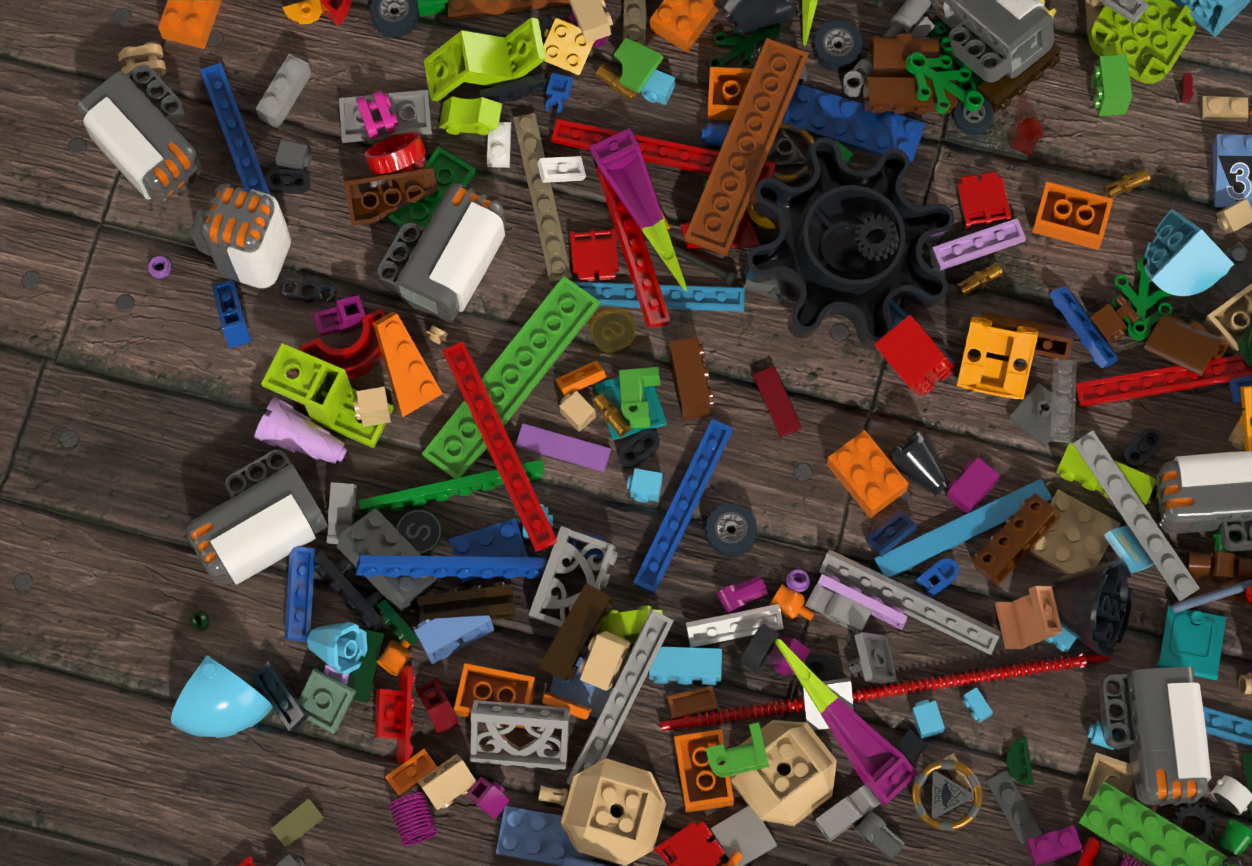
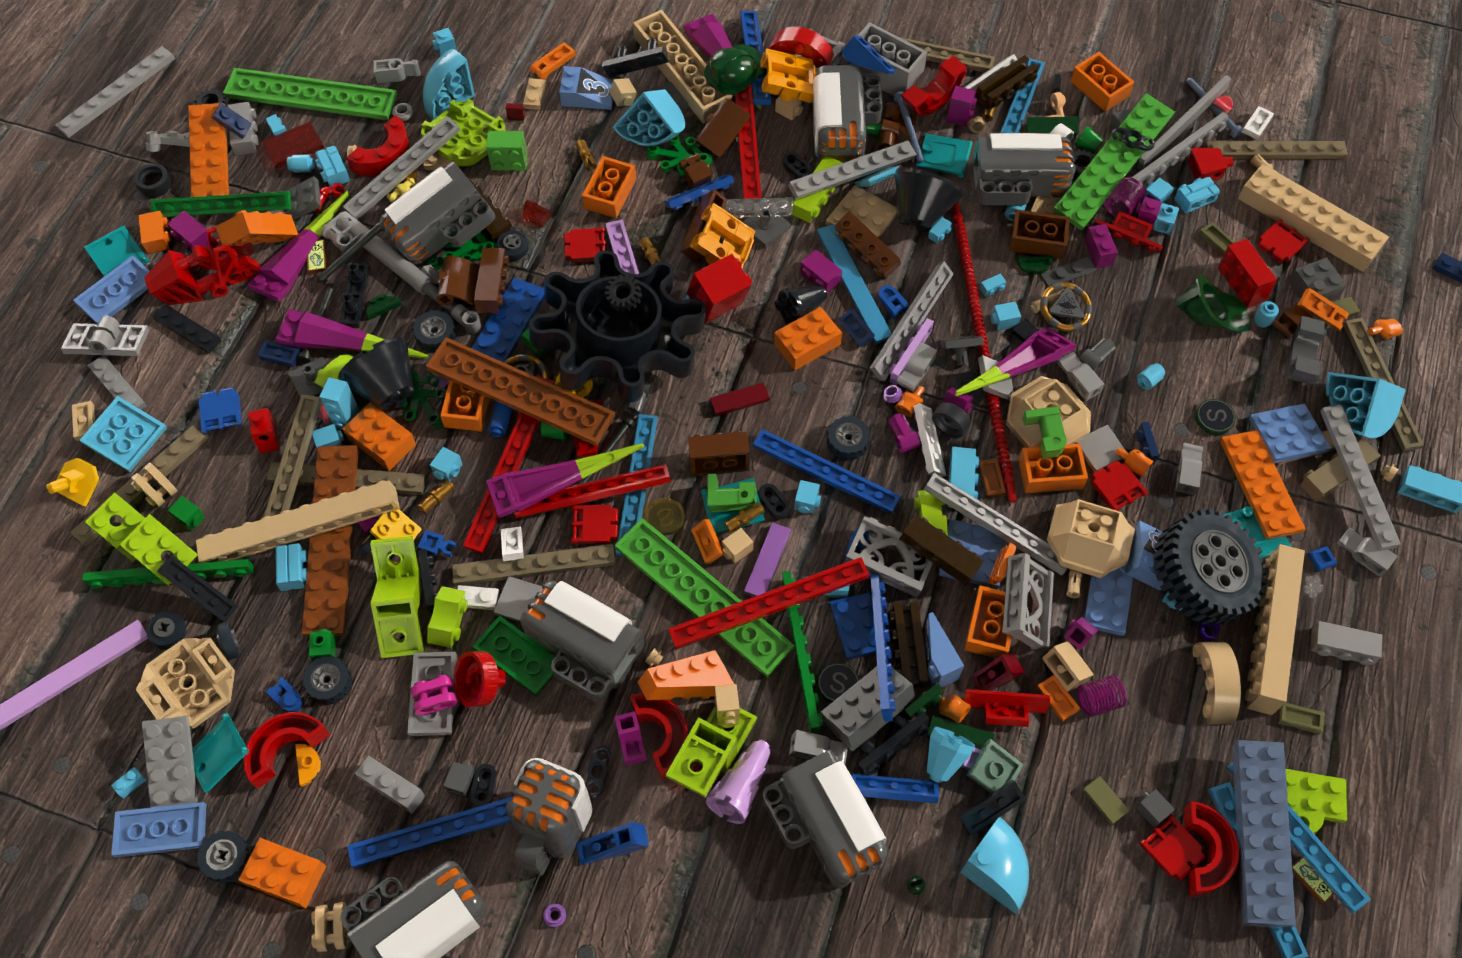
camera: 90 degrees left, 10 degrees down
(379, 195) = (514, 703): reddish brown wedge -> none
(500, 185) = (516, 598): none -> light grey tile
(604, 660) = (969, 524): tan brick -> none
(638, 64) = (424, 473): bright green tile -> none
(941, 81) = (469, 266): green plant -> none
(1029, 618) = (930, 239): nougat panel -> none
(1061, 762) = (1039, 234): none -> reddish brown brick

